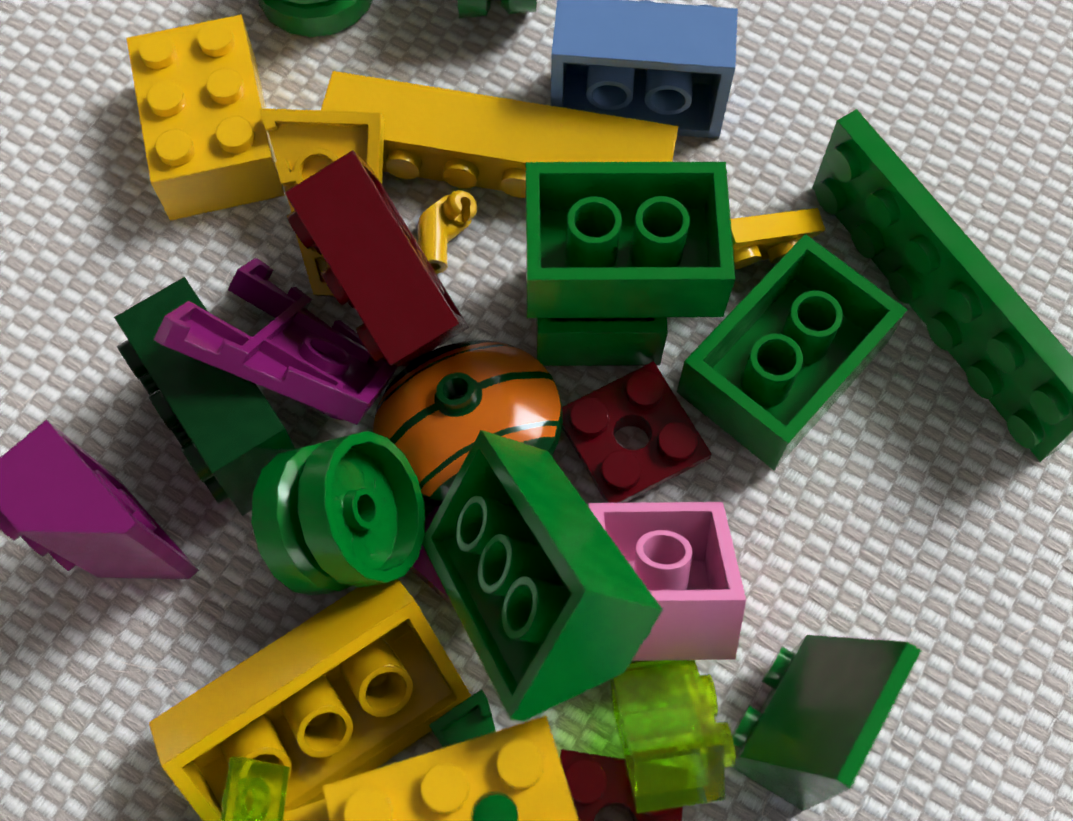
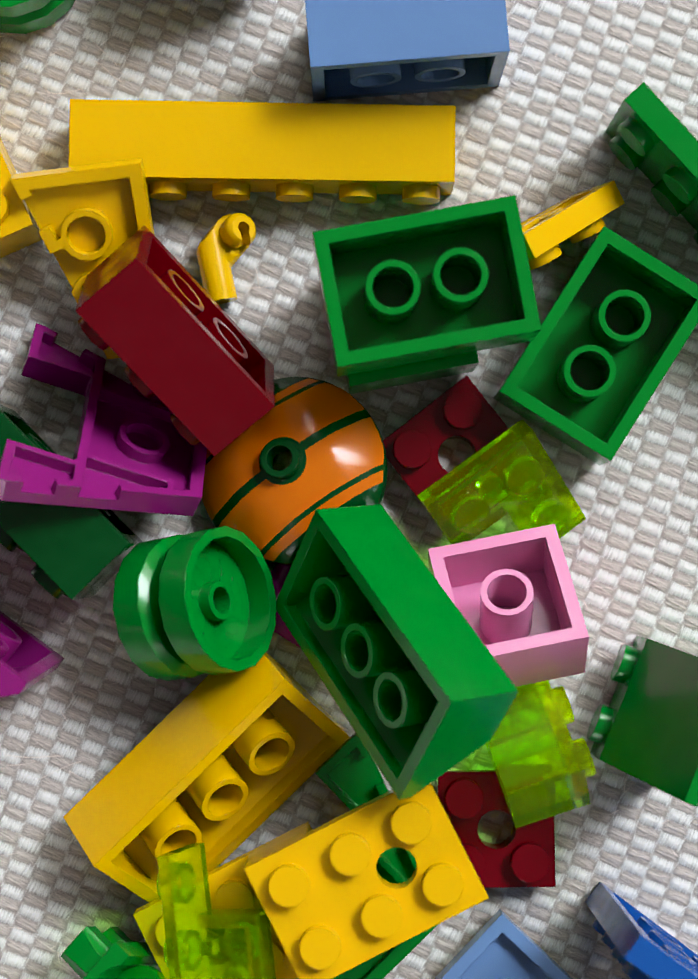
camera: 10 degrees left, 20 degrees up
(675, 453) = (502, 479): none -> clear neon green plate

